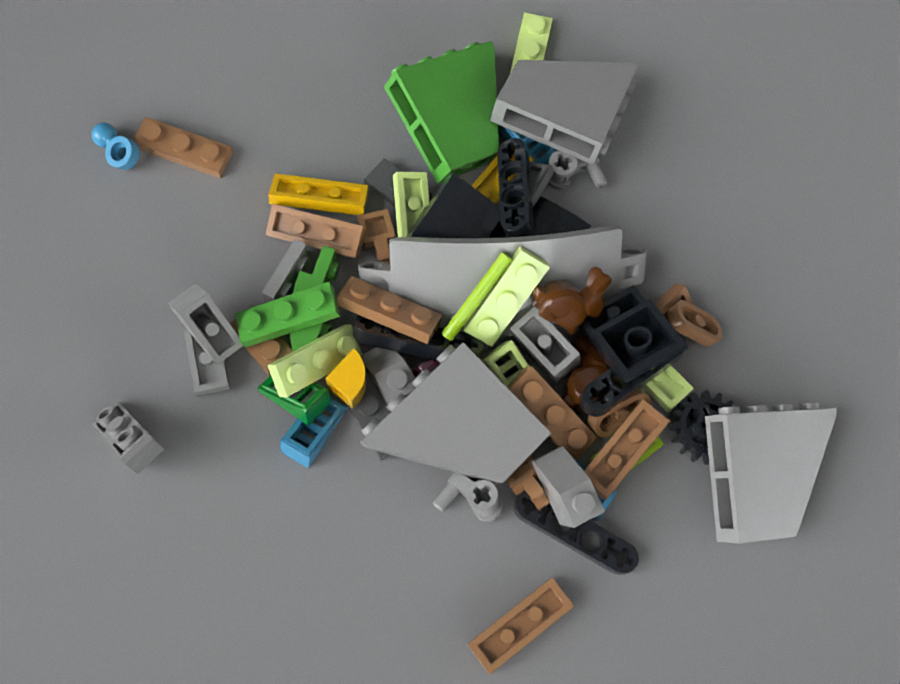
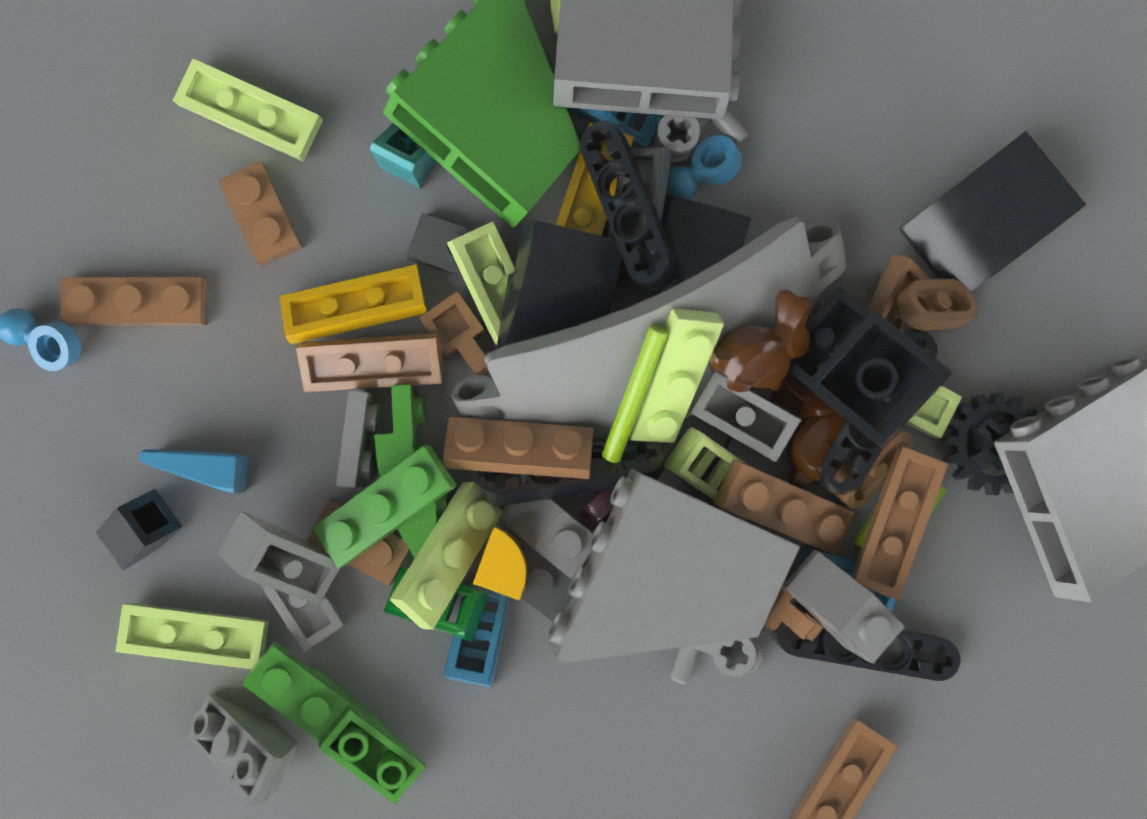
camera: 15 degrees left, 15 degrees up
(122, 279) = (138, 528): none -> black brick
(126, 357) = (191, 635): none -> yellowish green plate
(187, 258) = (218, 470): none -> dark azure slope
(194, 445) = (337, 720): none -> bright green slope
(283, 126) = (260, 214): none -> medium nougat plate
(302, 65) = (248, 110): none -> yellowish green plate
(385, 121) = (402, 156): none -> teal slope
(579, 192) = (712, 150): none -> dark azure plate
(749, 283) = (993, 214): none -> black slope

